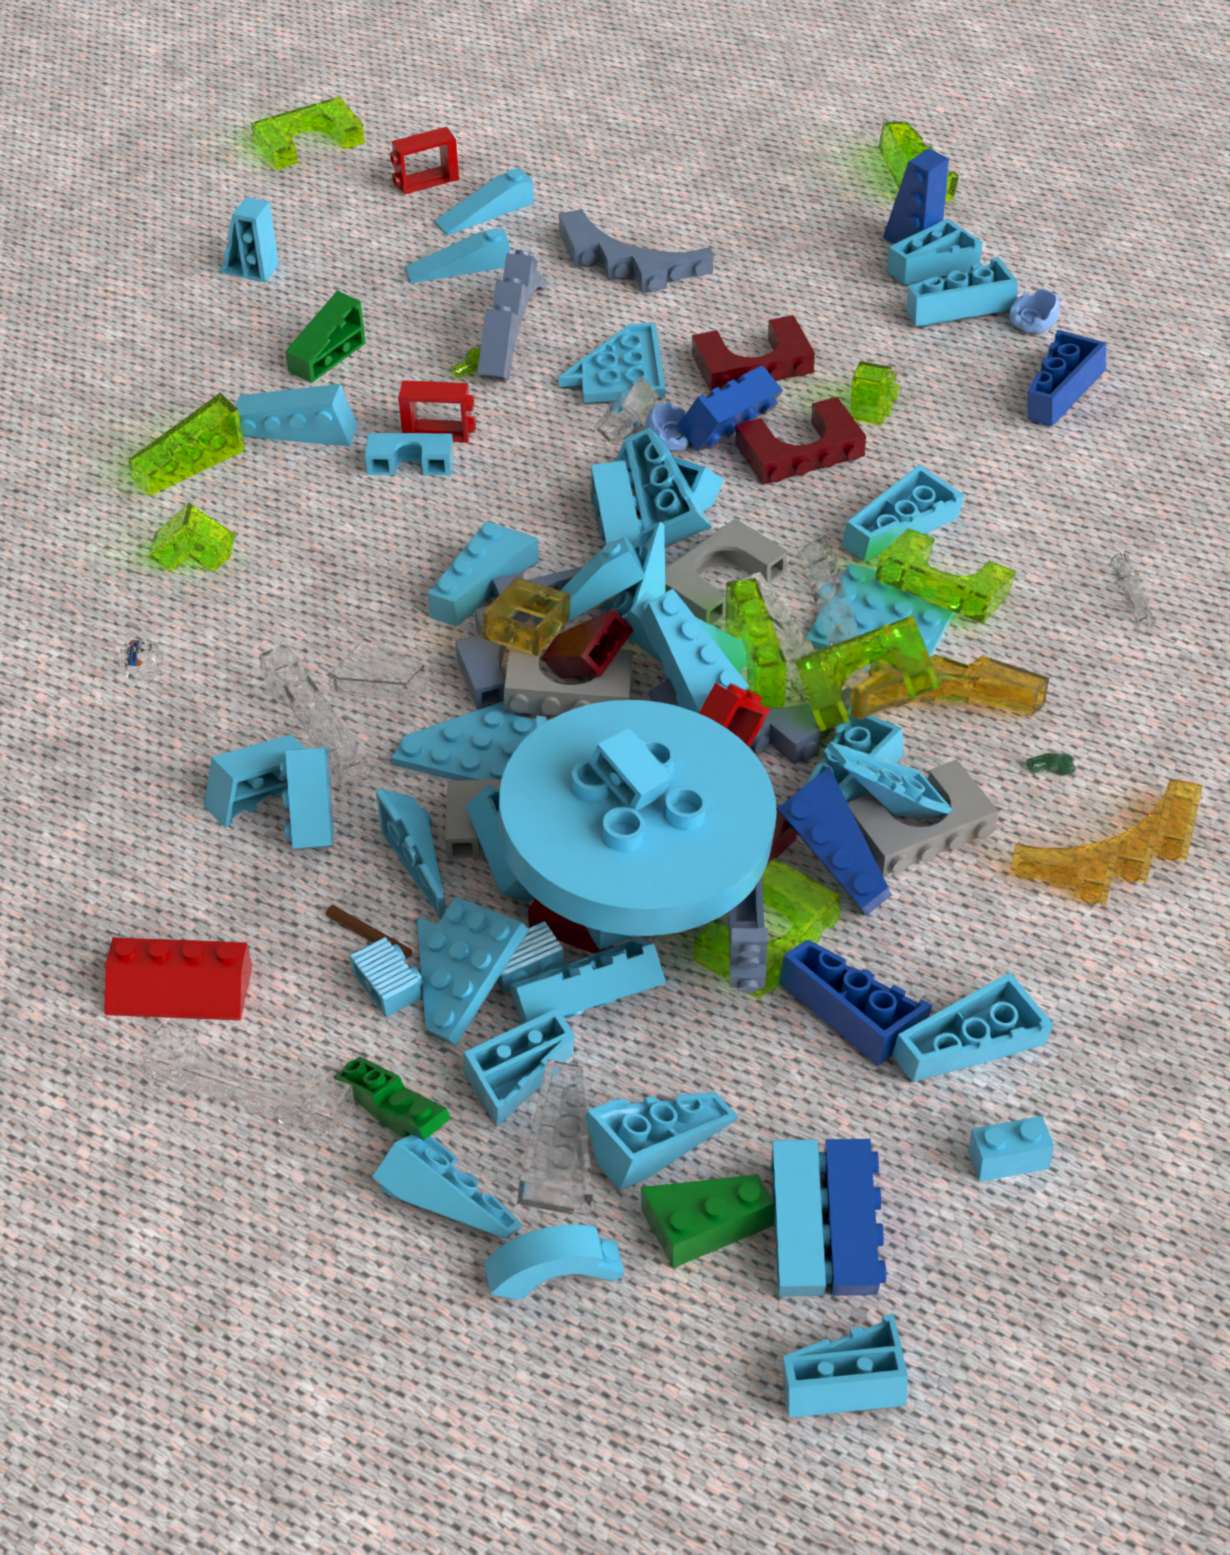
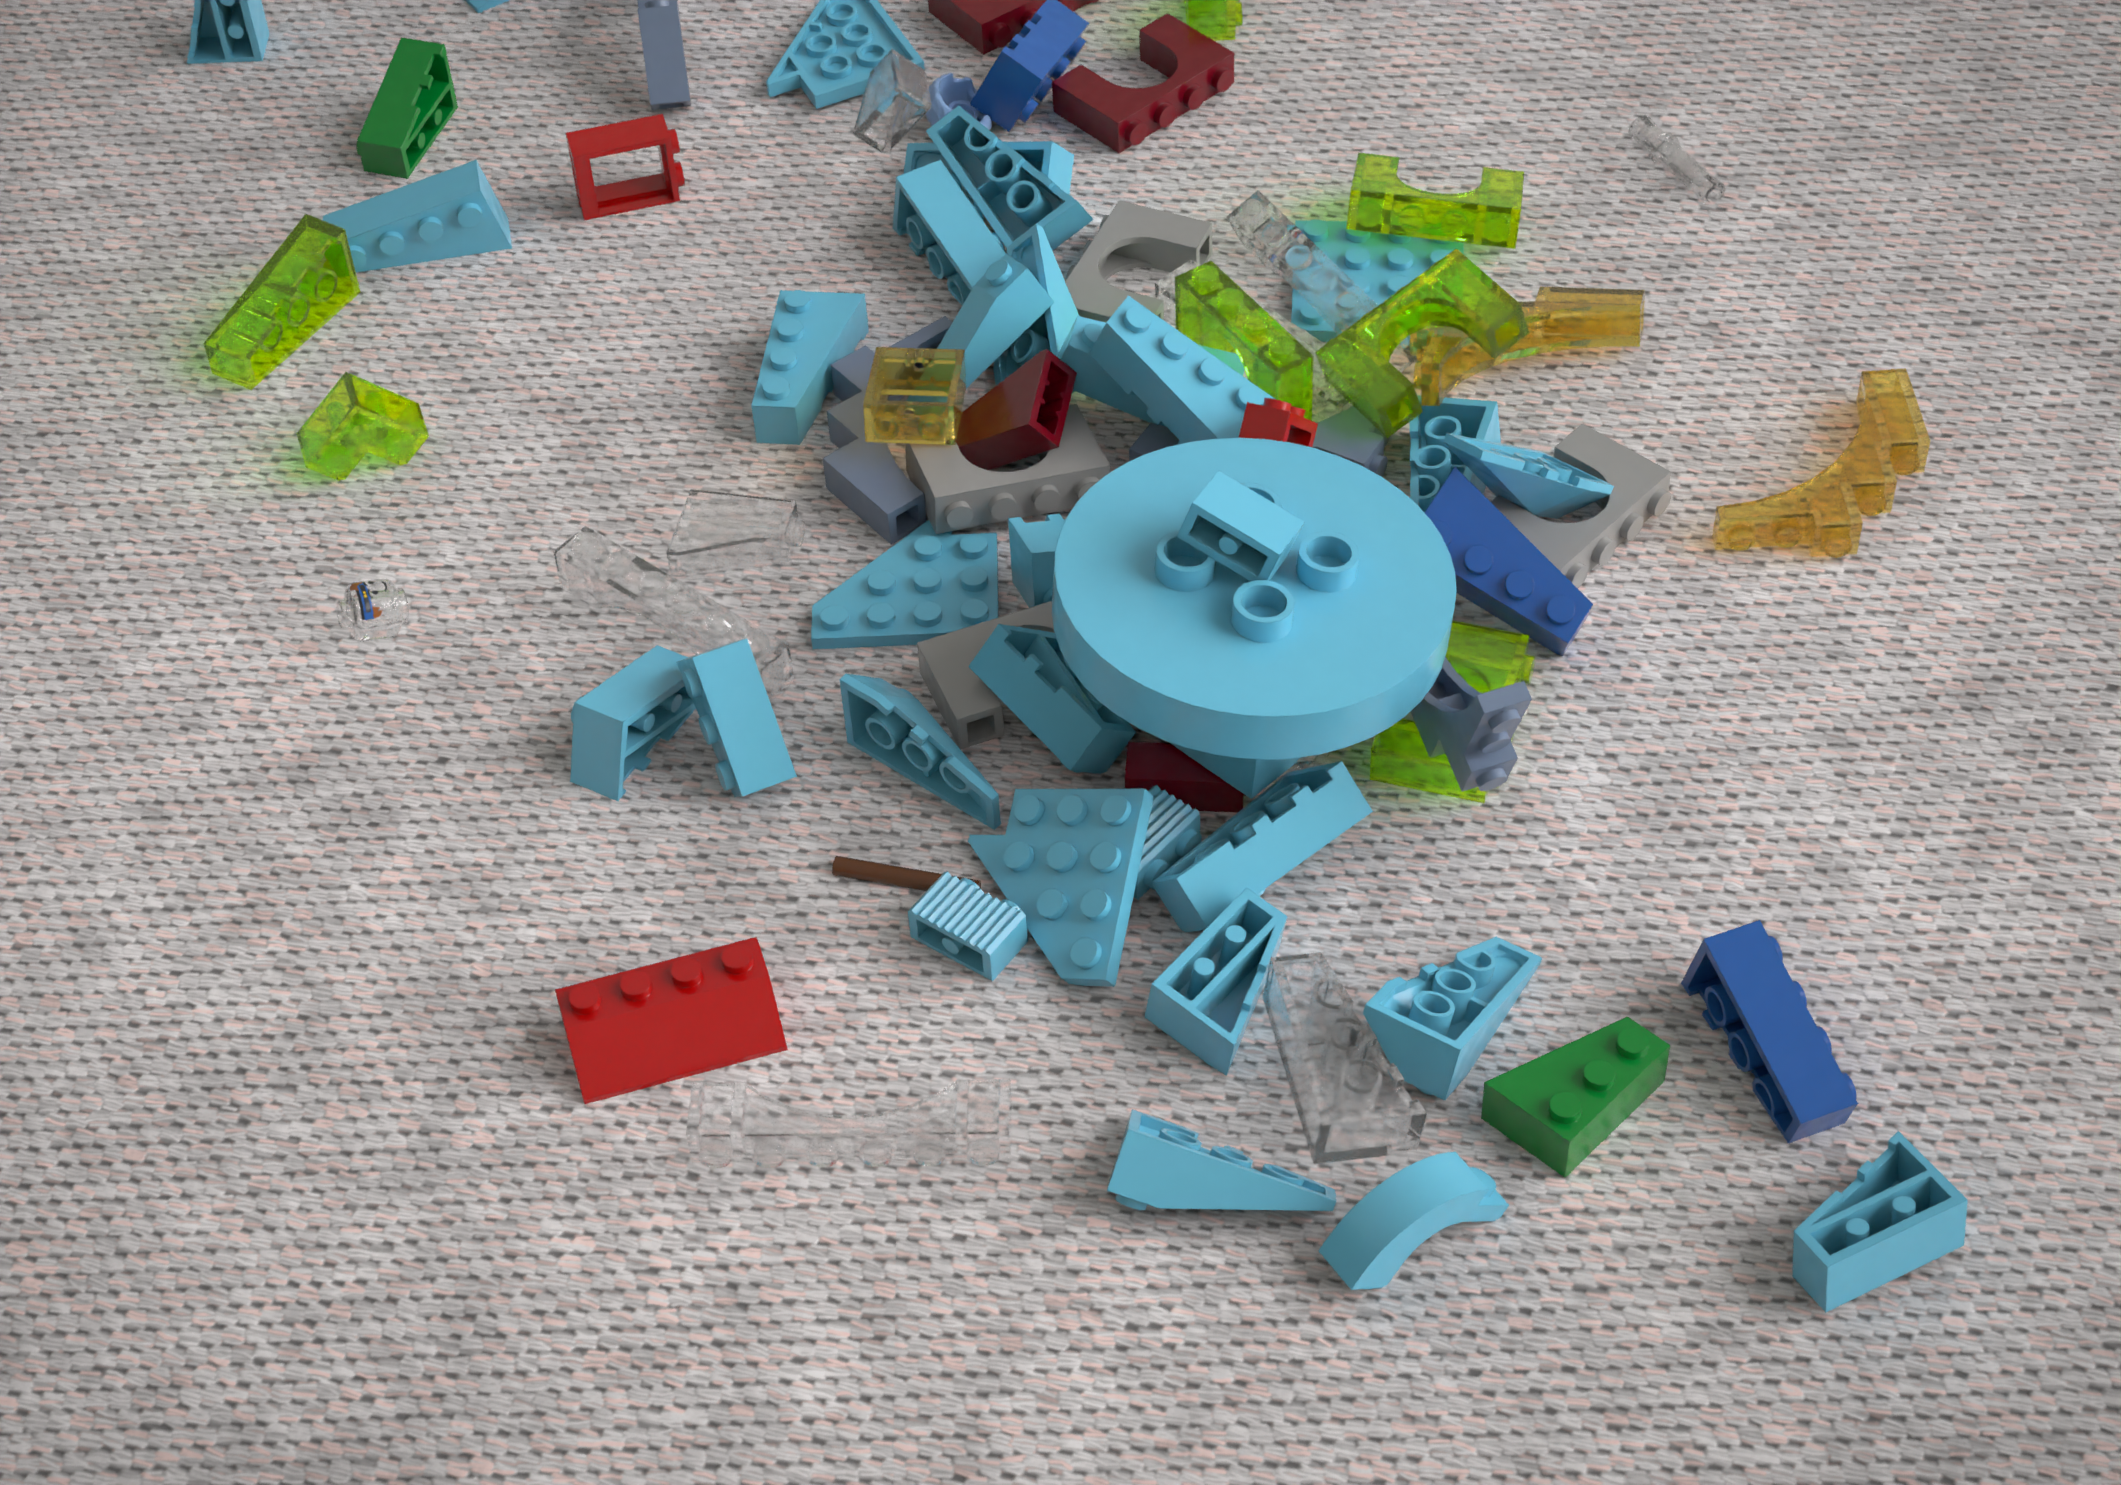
camera: 20 degrees left, 0 degrees up
(389, 450) = (639, 222): medium azure arch -> none
(390, 1102) = (1077, 1090): green slope -> none
(470, 364) = (630, 96): clear neon green arm -> none
(798, 1218) = (1707, 1054): medium azure wedge -> none
(850, 999) = (1619, 766): blue wedge -> none
(914, 502) = (1341, 121): medium azure wedge -> none
(973, 1031) = (1793, 752): medium azure wedge -> none
(1010, 1148) = (1918, 884): medium azure brick -> none
(1051, 760) = (1690, 395): clear green arm -> none

